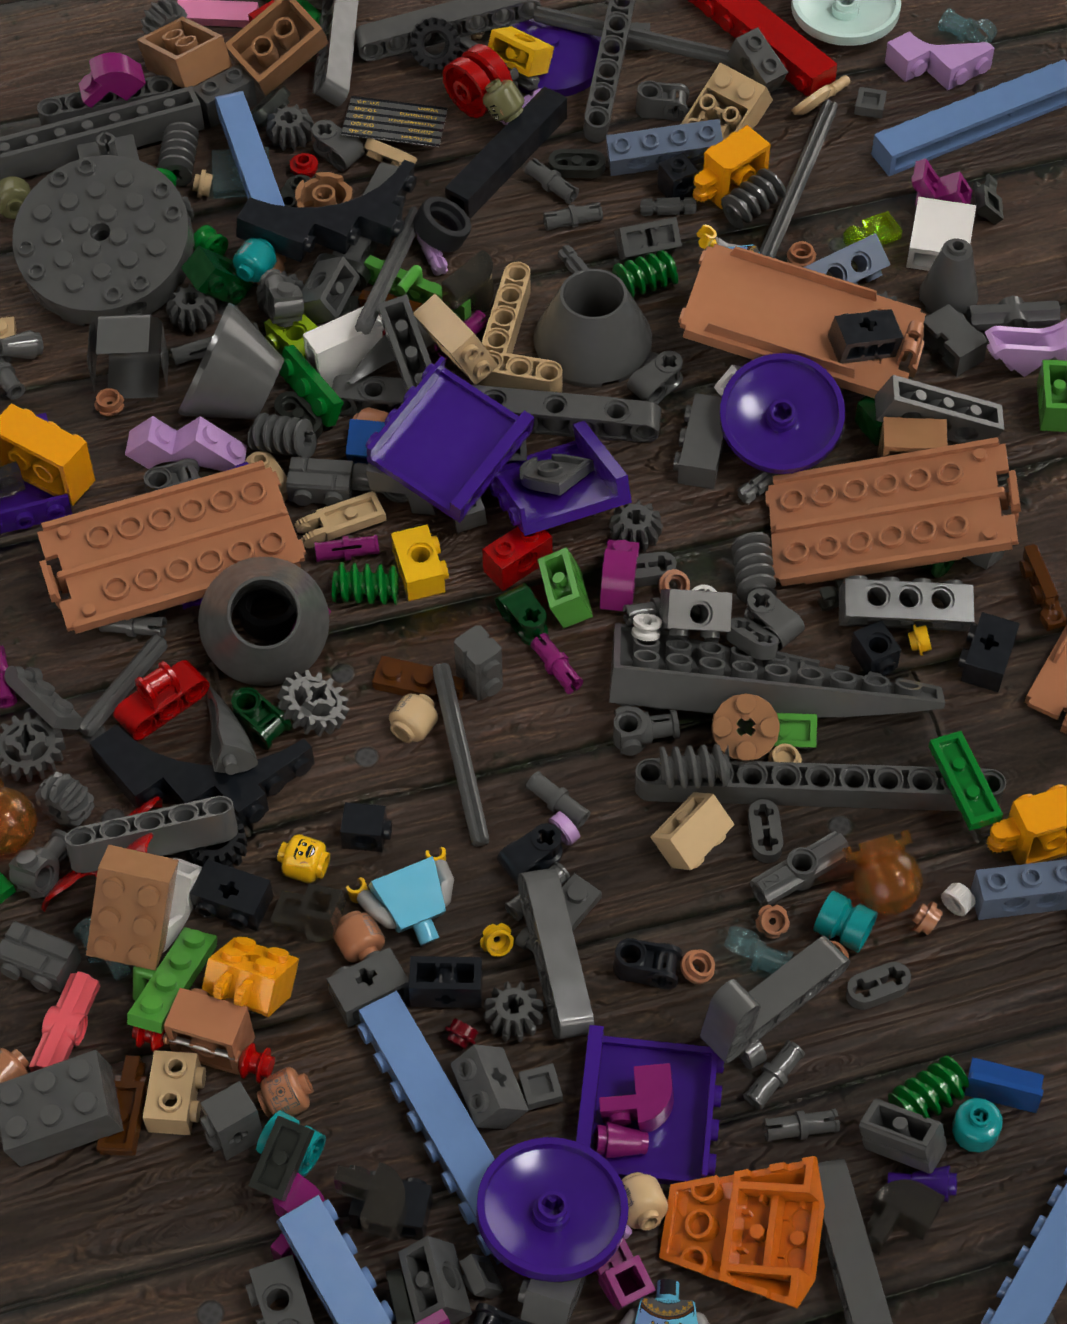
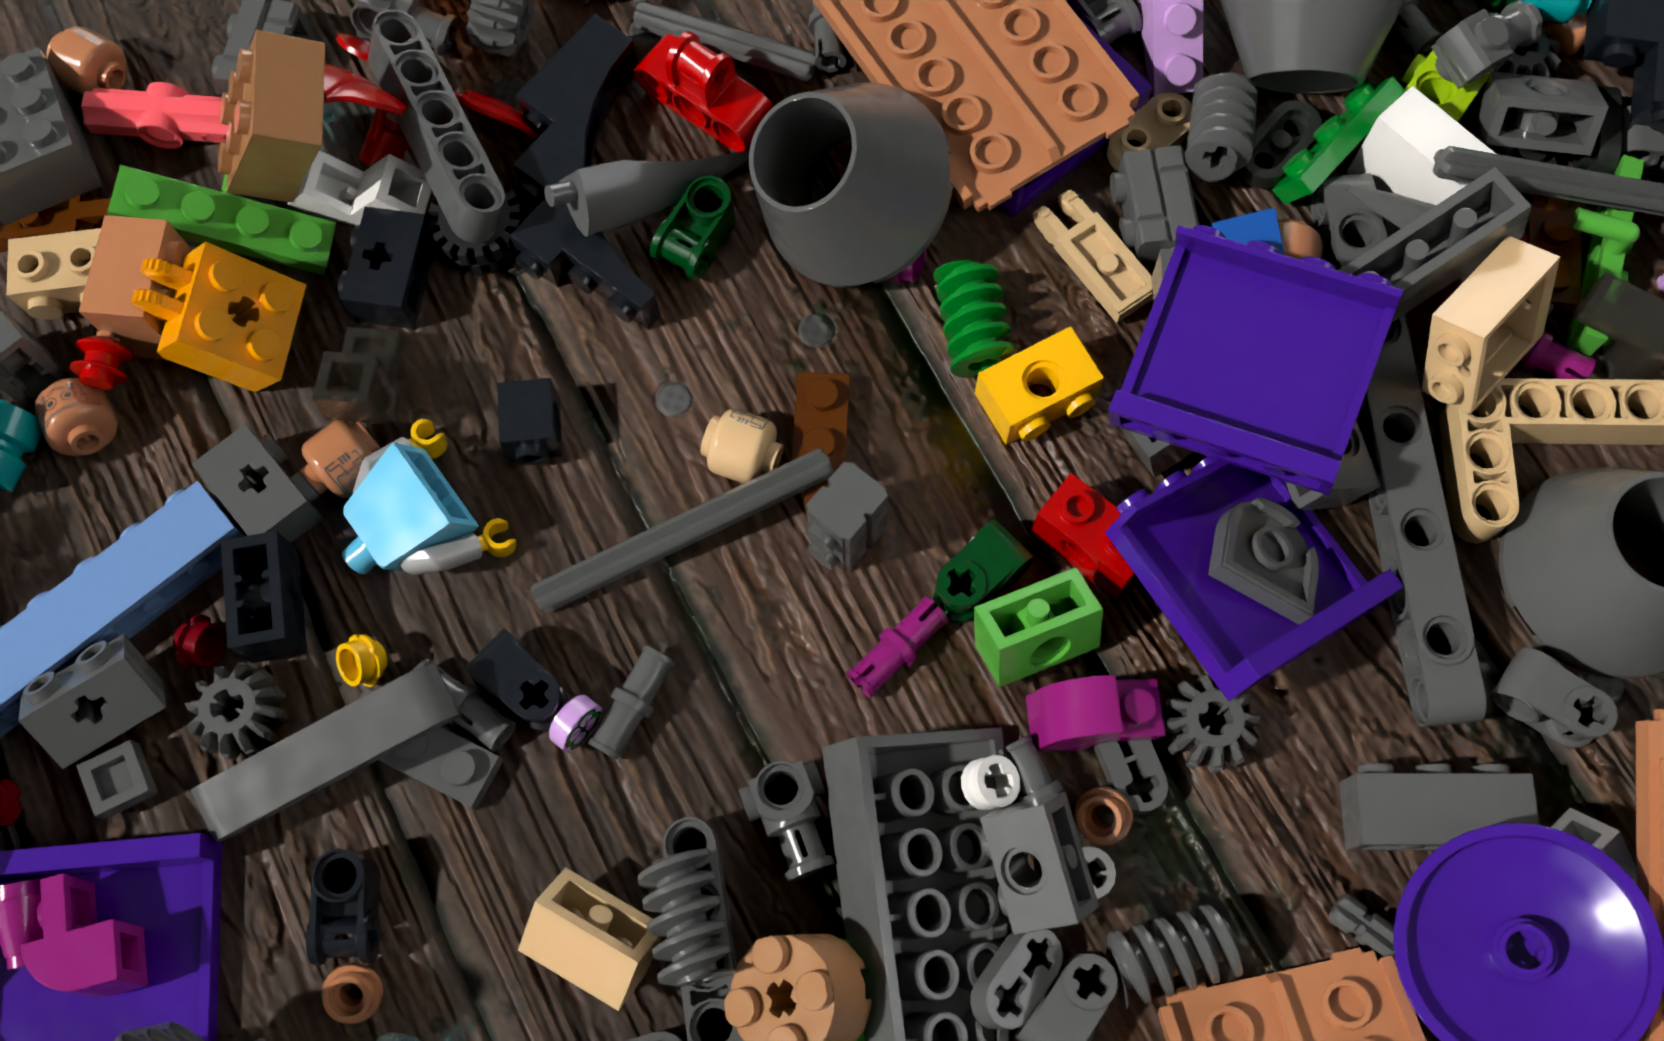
camera: 80 degrees right, 15 degrees up
(303, 858) = (464, 349): yellow head -> none
(312, 703) = (740, 272): dark grey gear -> none
(324, 549) = (1043, 276): magenta pin -> none

